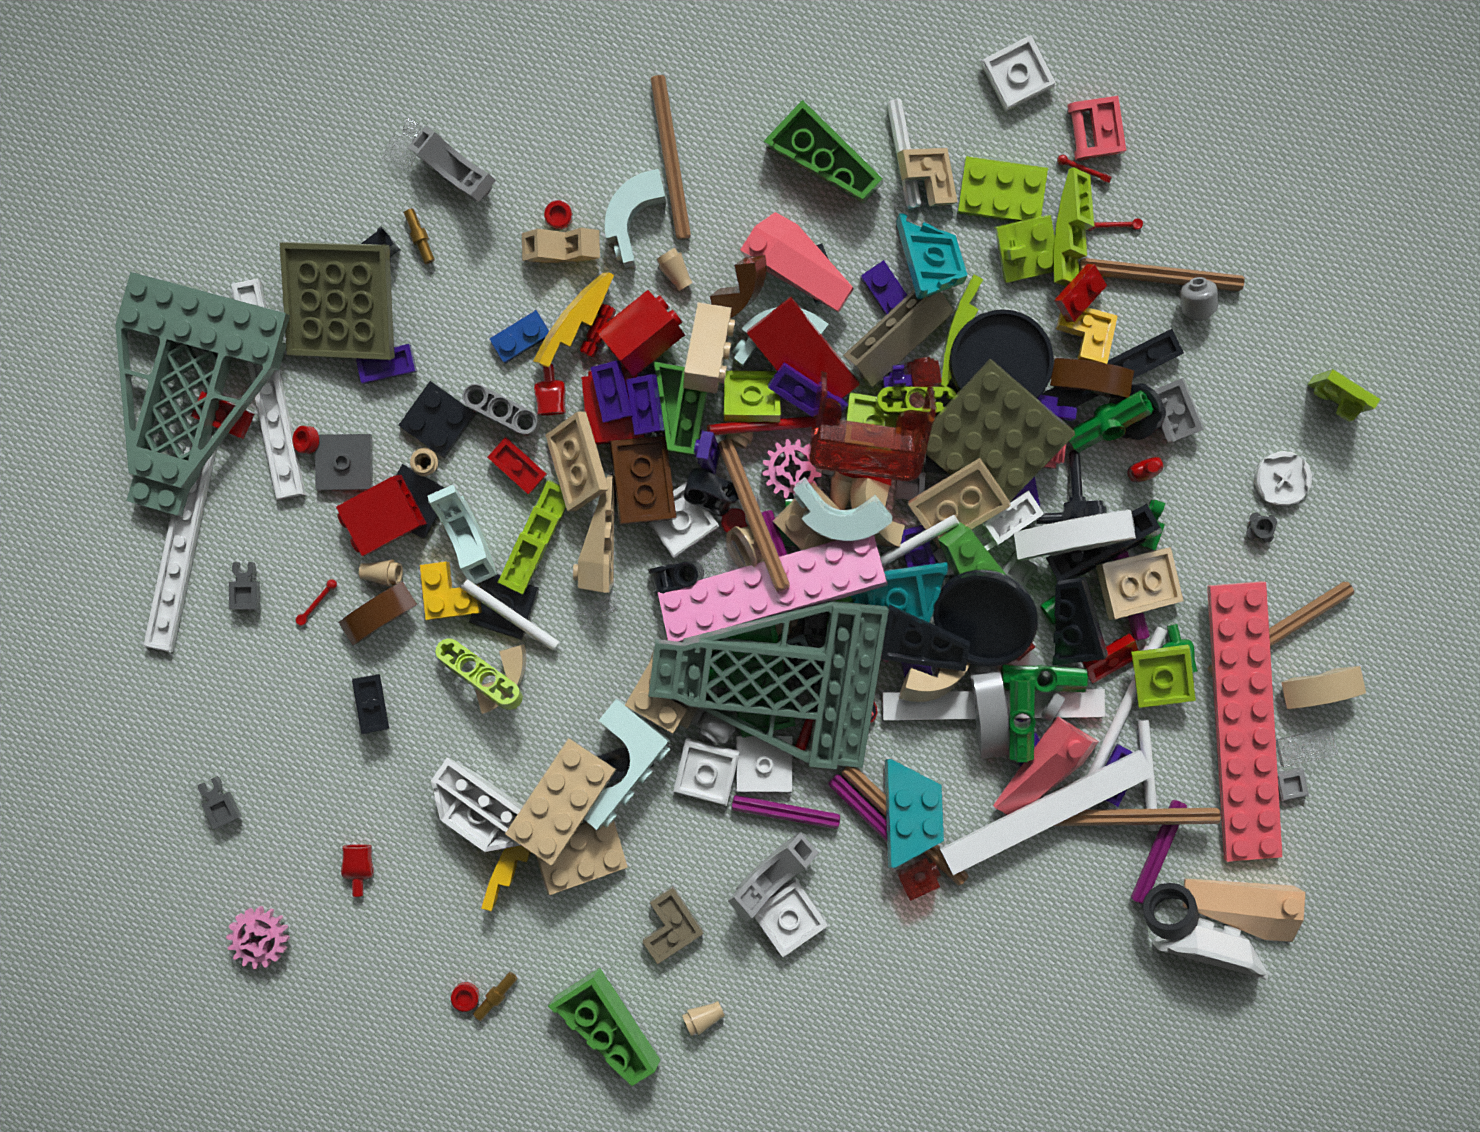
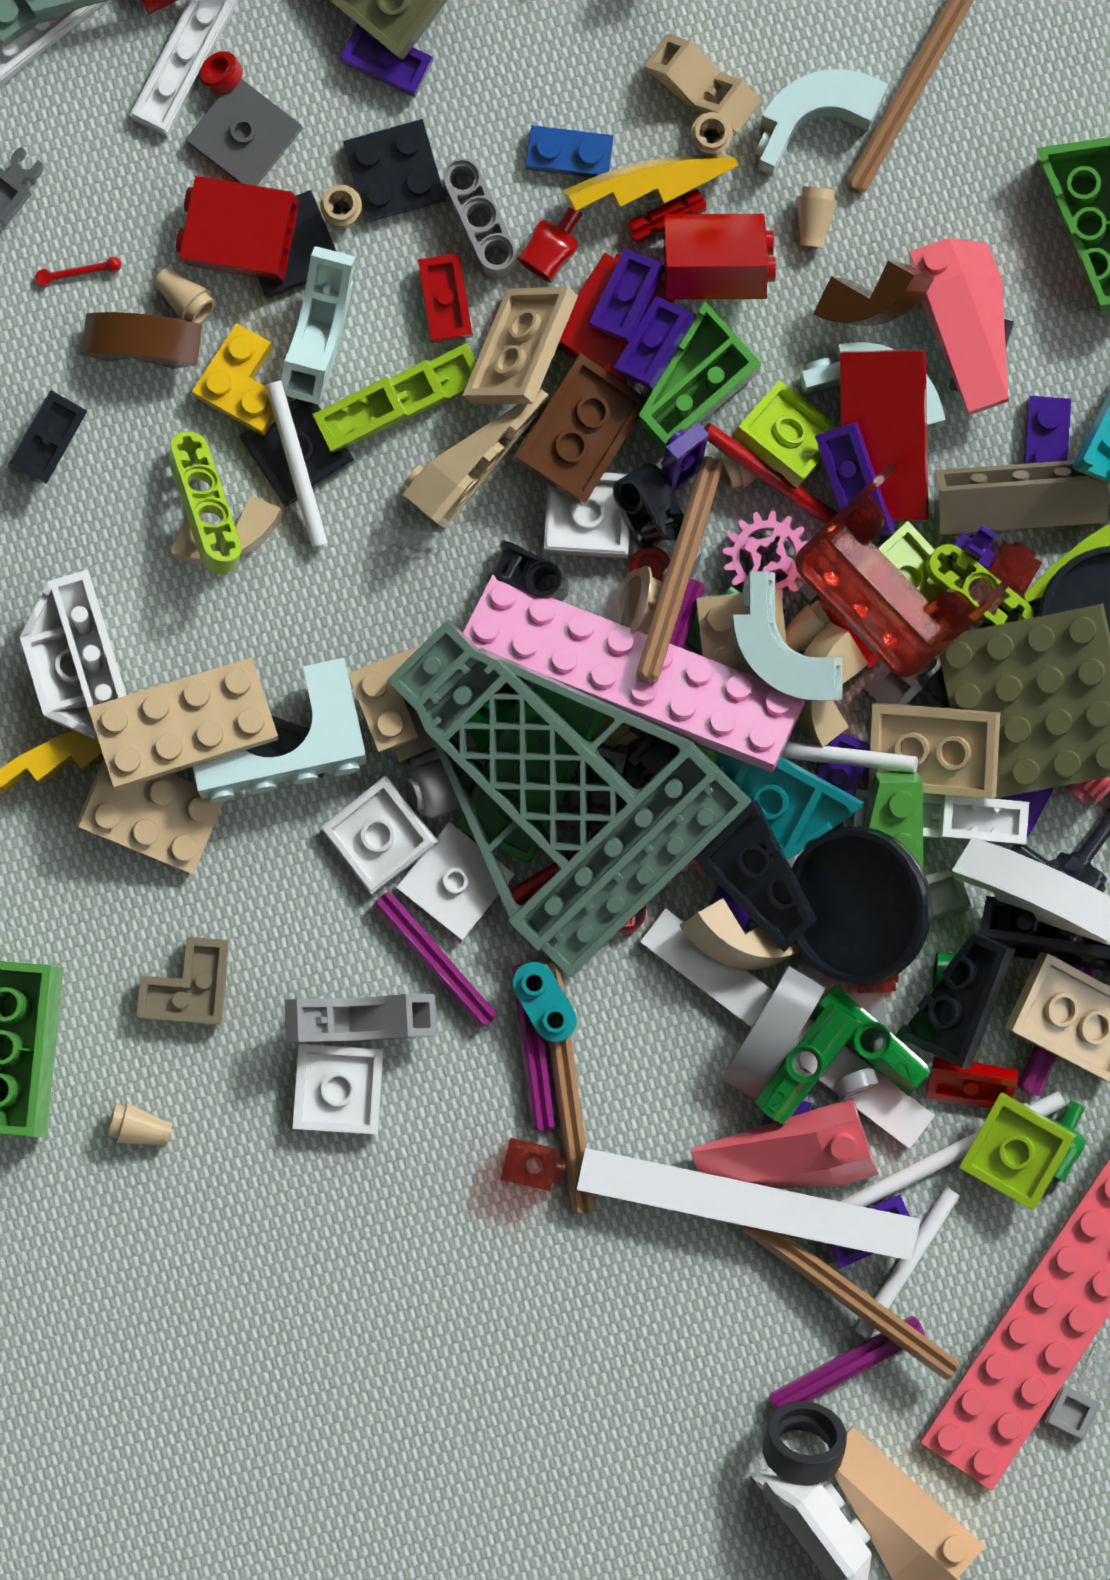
camera: 35 degrees right, 5 degrees down
(558, 214) = (728, 46): red tile -> none
(584, 262) = (711, 124): none -> tan cone
(708, 348) = (781, 333): tan wedge -> none
(860, 792) = (544, 1002): none -> teal plate
(912, 813) = (586, 1077): teal wing -> none

